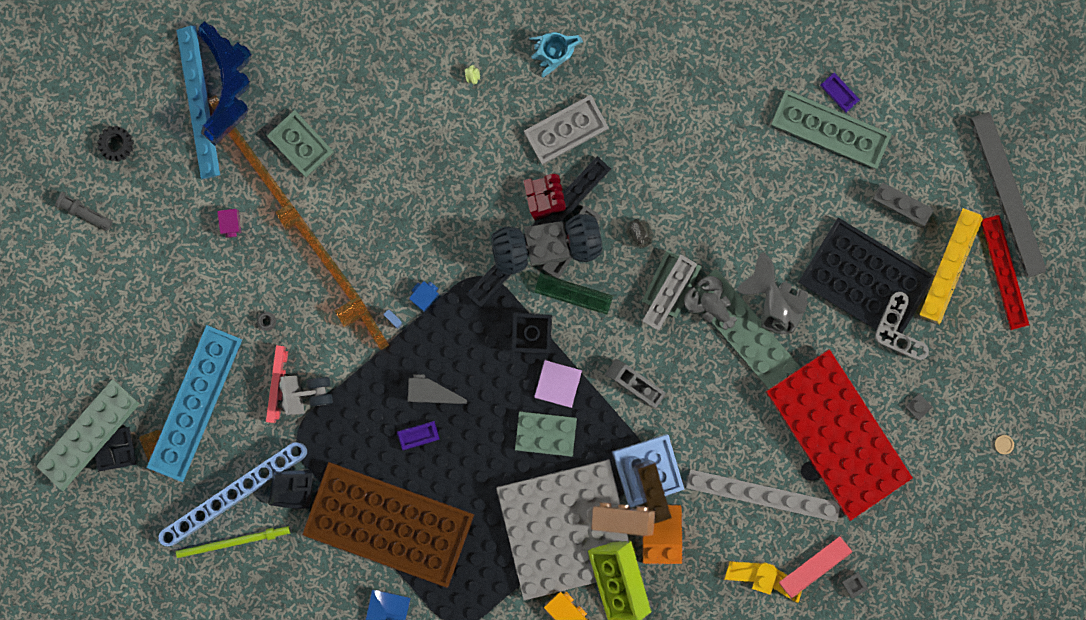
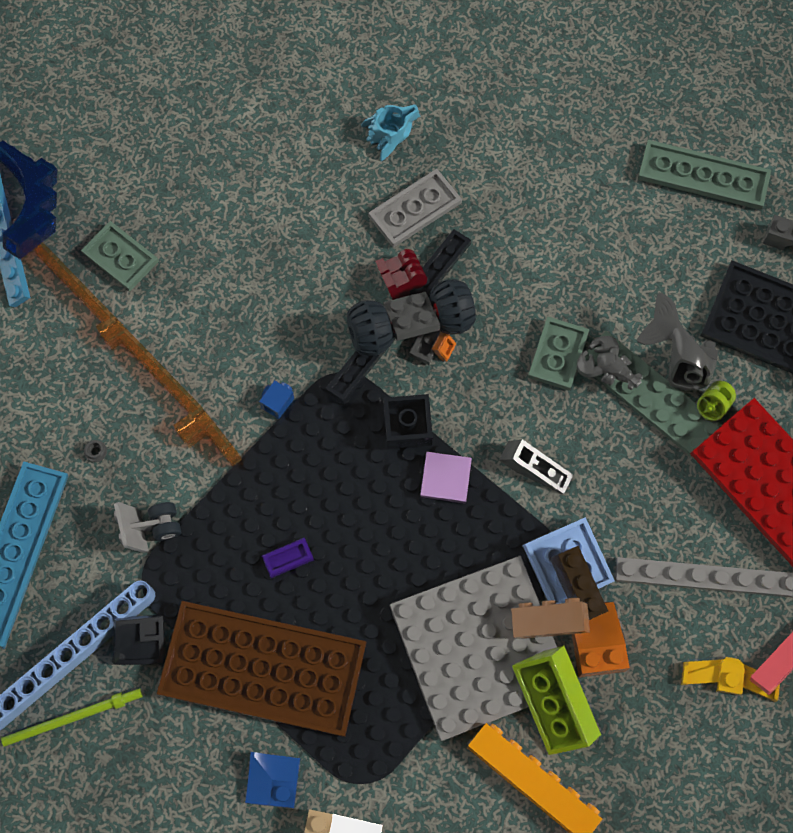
camera: 10 degrees left, 15 degrees down
(229, 222) = (44, 346): magenta brick -> none
(275, 393) = (110, 552): coral plate -> none
(393, 319) = (243, 429): medium blue tile -> none
(428, 391) = (294, 503): dark grey slope -> none
(472, 74) = (304, 164): yellowish green plate -> none
(545, 434) = (439, 536): sand green plate -> none
(572, 267) = (444, 346): none -> orange tile
(573, 293) = (449, 376): clear green plate -> none
(639, 233) = (514, 303): clear smoke head -> none
(669, 292) = (559, 359): light grey plate -> none
(797, 346) = (716, 400): none -> lime wheel
(808, 471) = (757, 542): black piece -> none
(839, 92) = (705, 138): dark purple tile -> none

